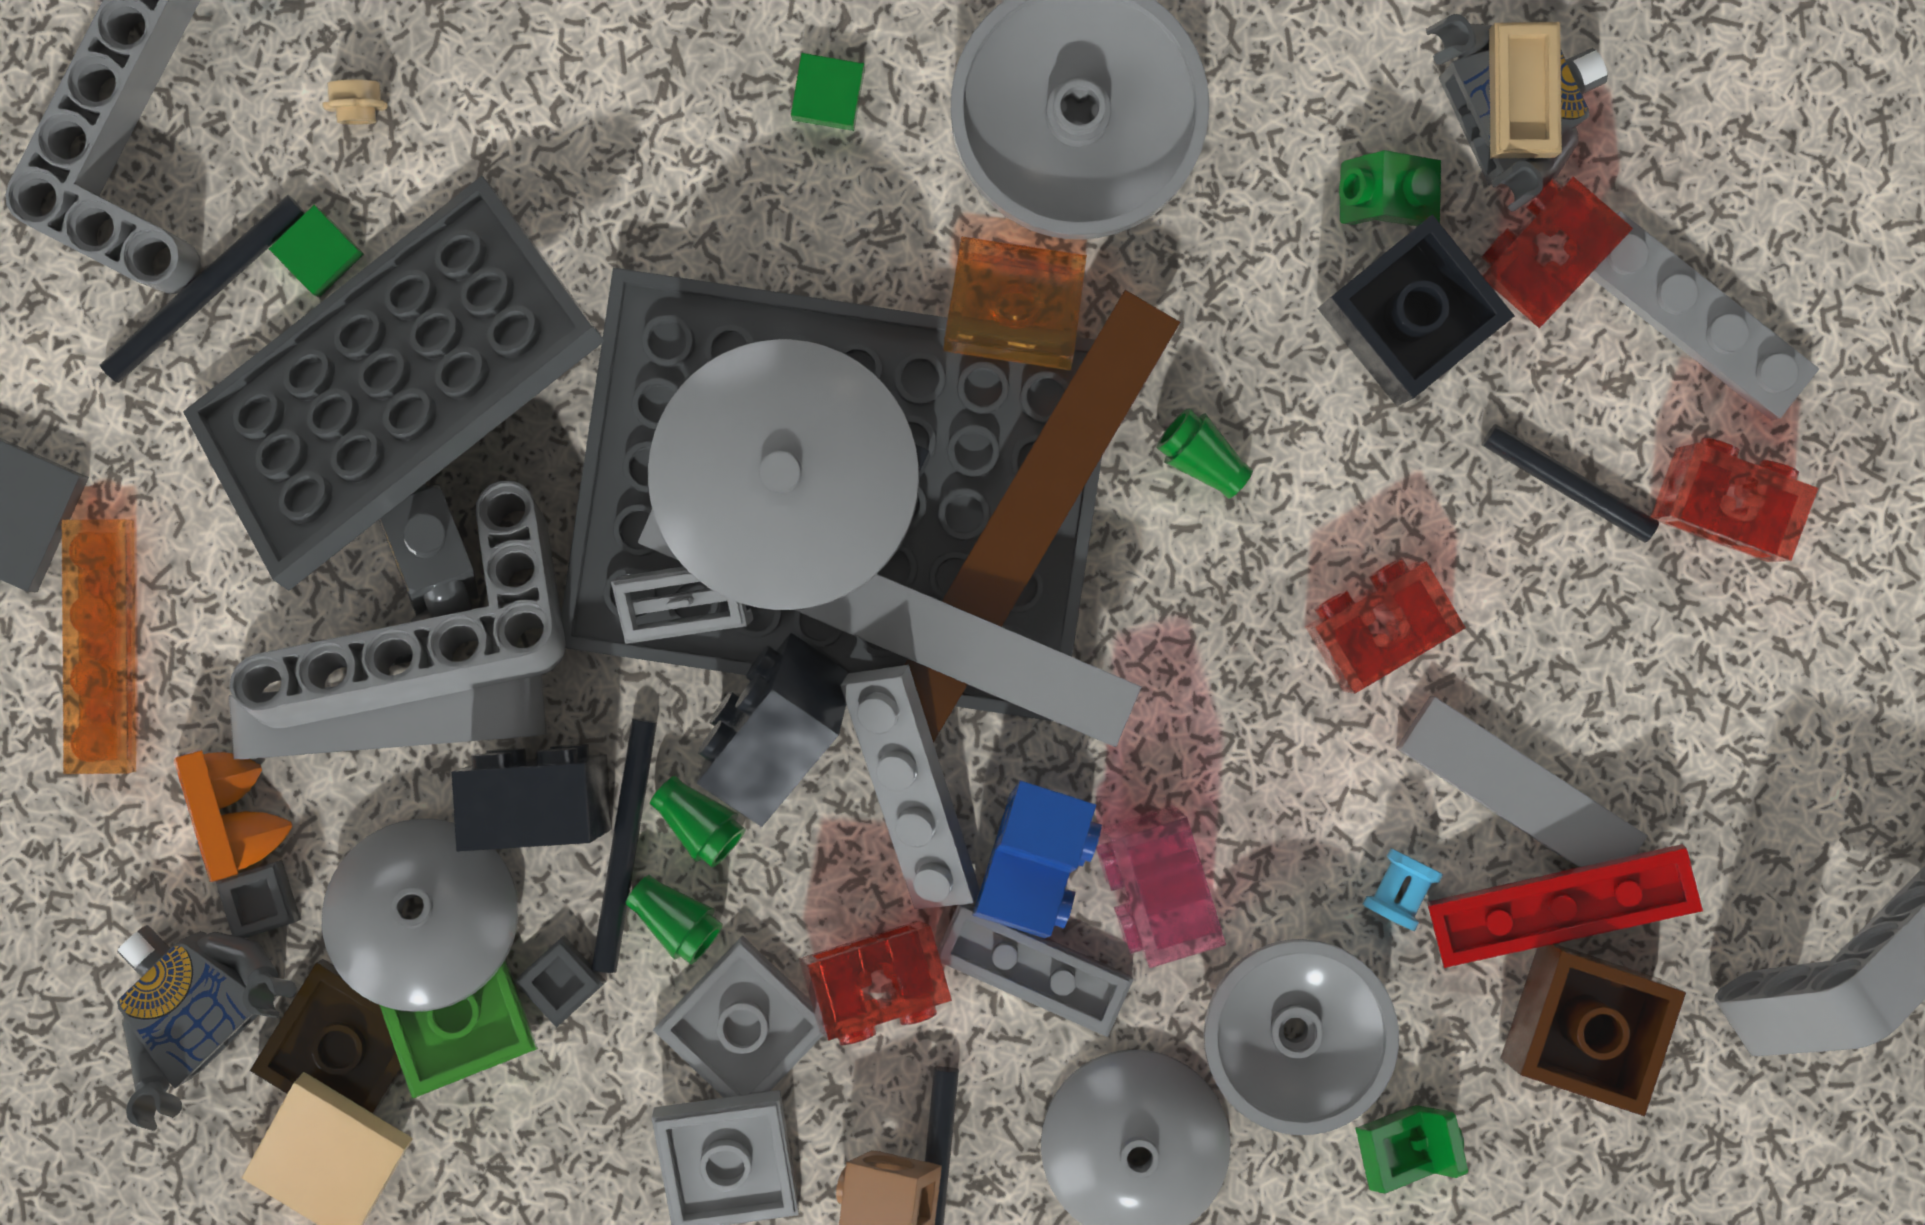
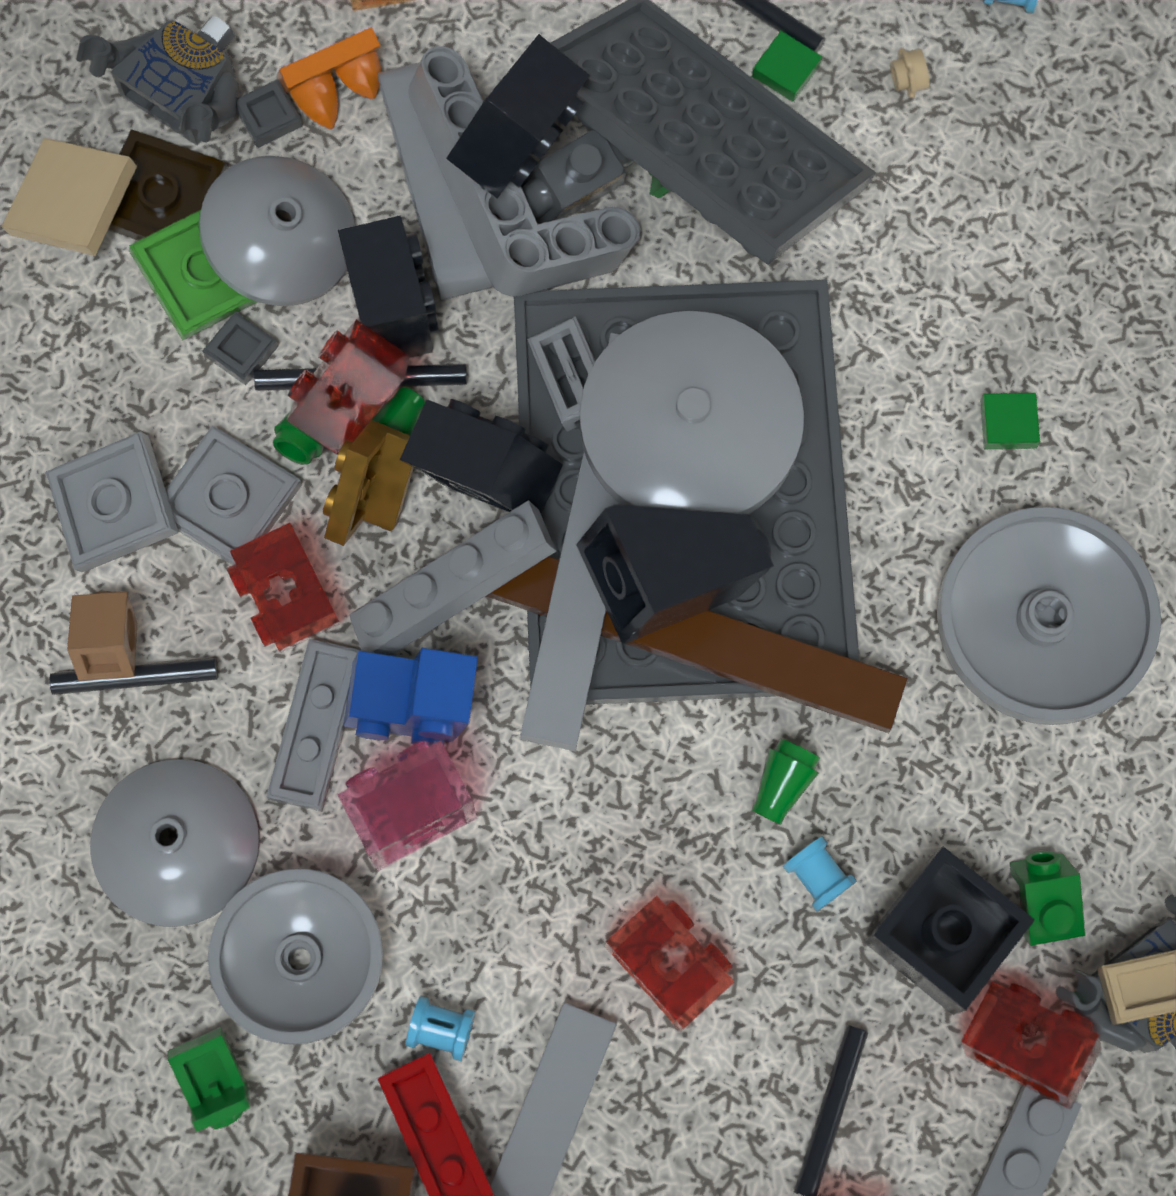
camera: 70 degrees right, 15 degrees down
(359, 603) = (520, 118): none -> black brick
(655, 871) = (371, 375): none -> clear red brick
(769, 865) = (370, 483): none -> pearl gold bracket
(964, 536) = (670, 563): none -> black slope
(1015, 303) = (874, 596): clear orange tile -> none
(1317, 438) = (819, 873): none -> medium azure bush

